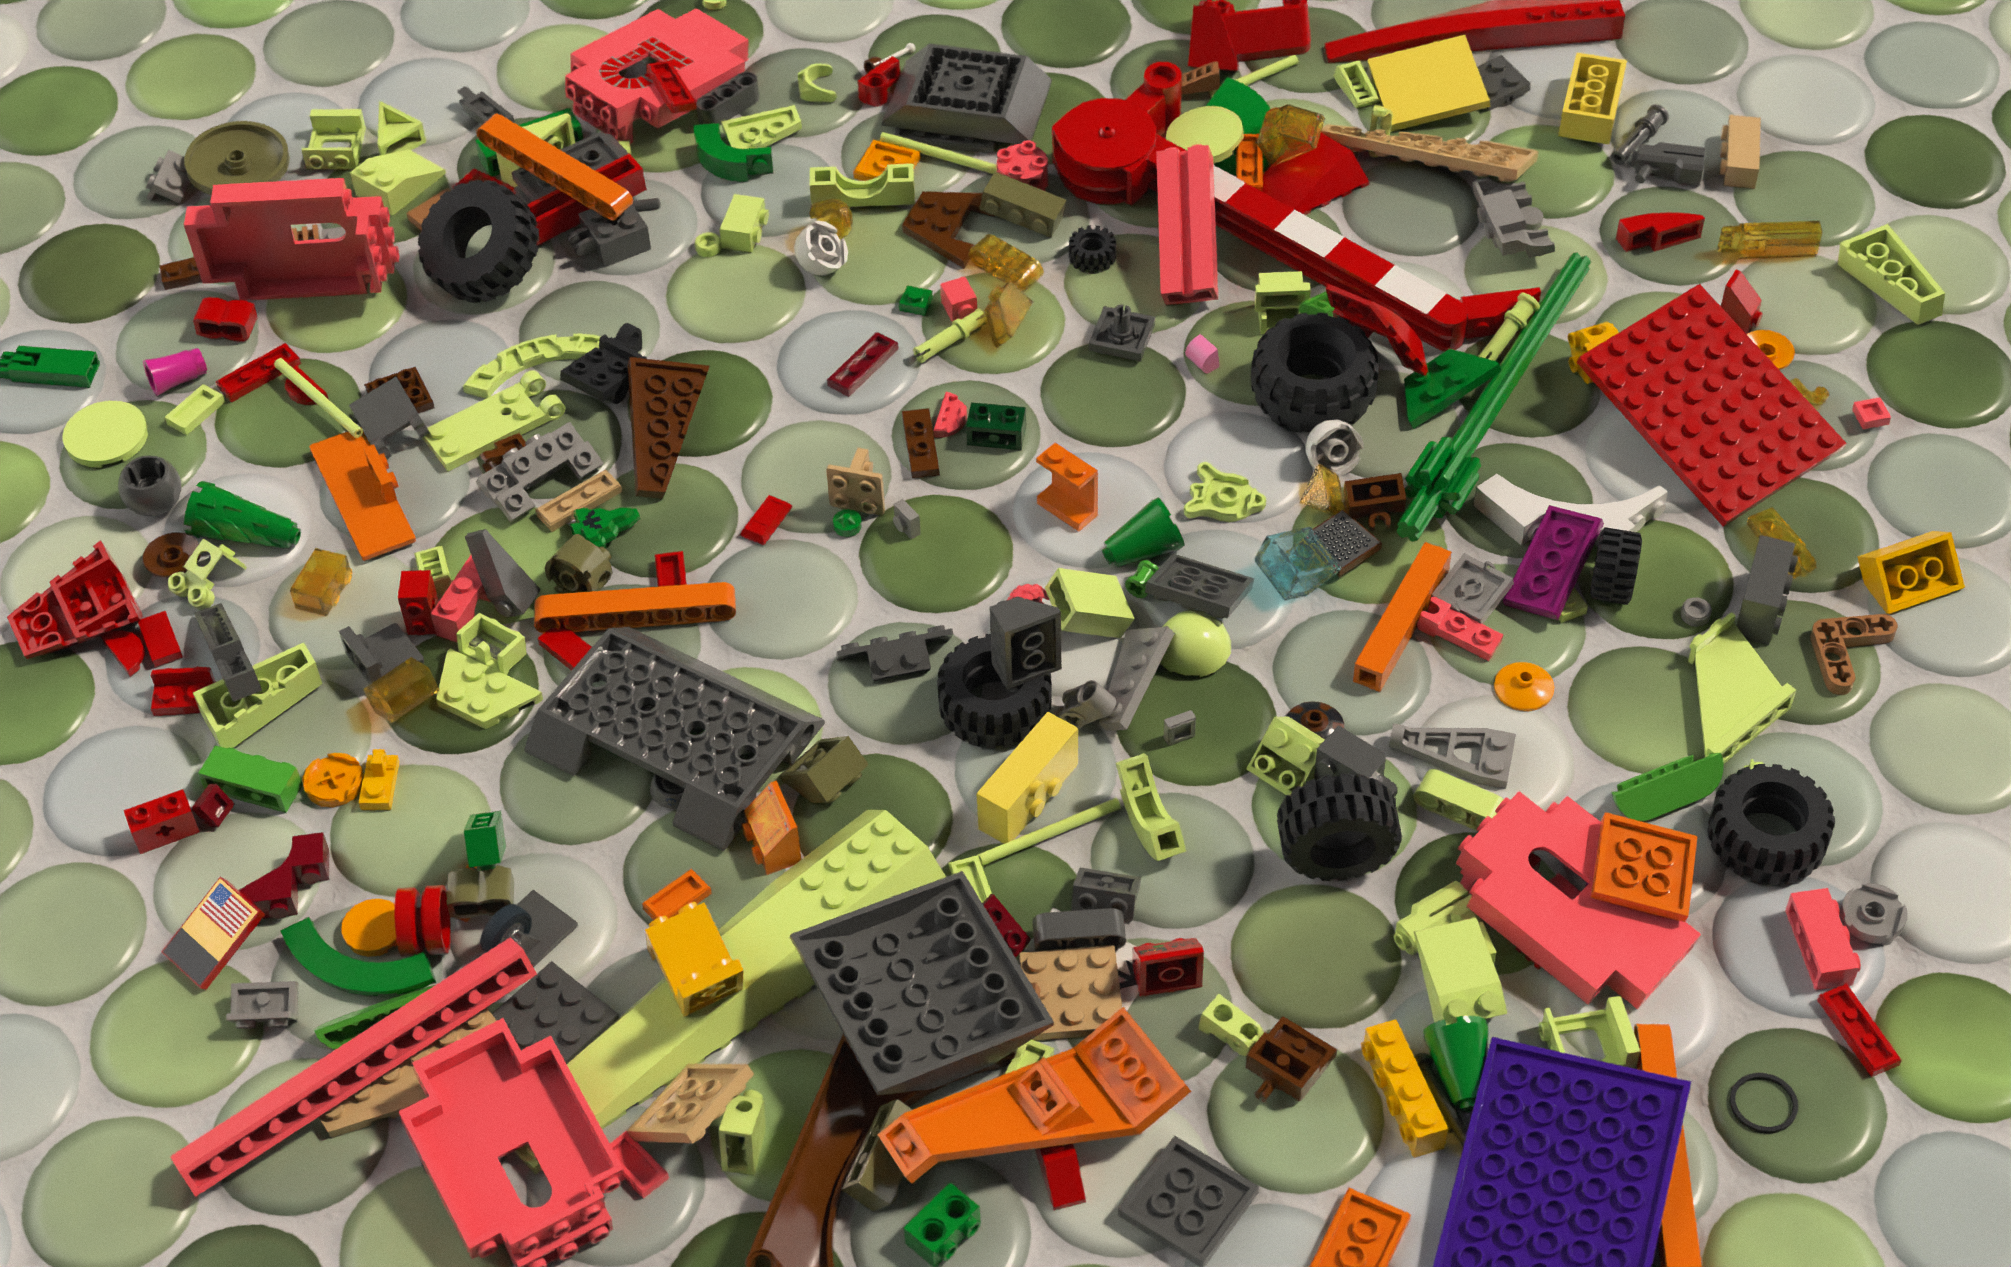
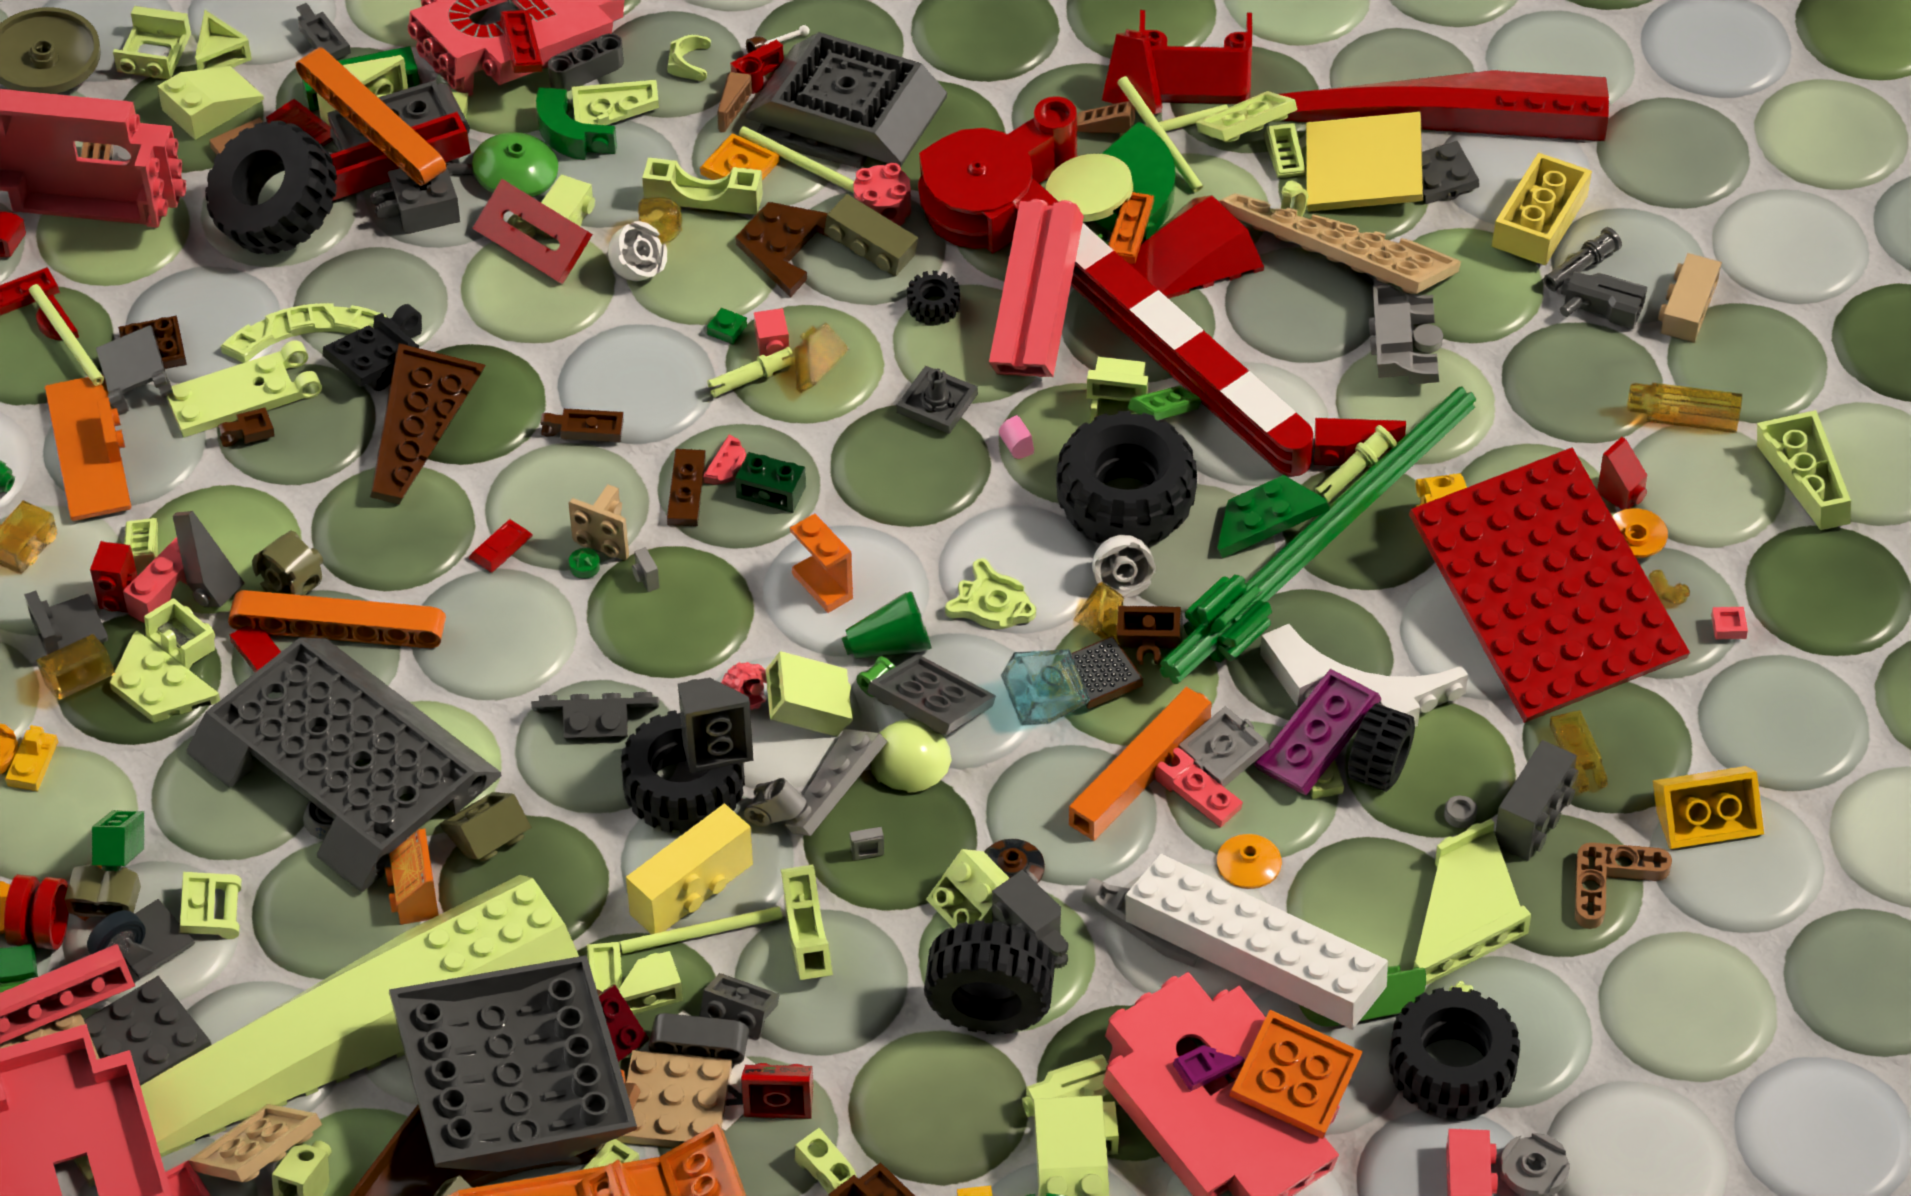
camera: 10 degrees right, 0 degrees up
(533, 463) = (270, 445): light grey bracket -> none
(574, 887) = (199, 902): none -> yellowish green plate
(585, 495) = (310, 492): tan tile -> none
(602, 525) = (326, 523): green rock -> none
(670, 569) = (386, 583): red tile -> none
(680, 892) = (301, 933): orange tile -> none
(688, 194) = (516, 159): none -> bright green dish
(693, 958) = (292, 997): yellow bracket -> none
(744, 270) = (570, 235): none -> red piece
(813, 403) = (584, 425): none -> reddish brown plate
(862, 364) = (650, 388): dark red tile -> none
(867, 109) = (734, 97): none -> medium nougat slope
(1005, 262) = (835, 298): clear yellow beam -> none
(1023, 886) = (652, 983): none -> yellowish green slope
(1233, 71) = (1154, 125): none -> yellowish green piece
(1289, 133) = (1181, 199): clear yellow slope -> none
(1317, 60) = (1246, 116): none -> yellowish green plate
(1380, 320) = (1227, 455): red wedge -> none
(1456, 799) = (1130, 966): yellowish green beam -> none
(1560, 874) = (1205, 1065): none -> magenta tile
(1566, 754) = (1256, 941): none -> white brick
(1658, 230) = (1565, 375): red slope -> none

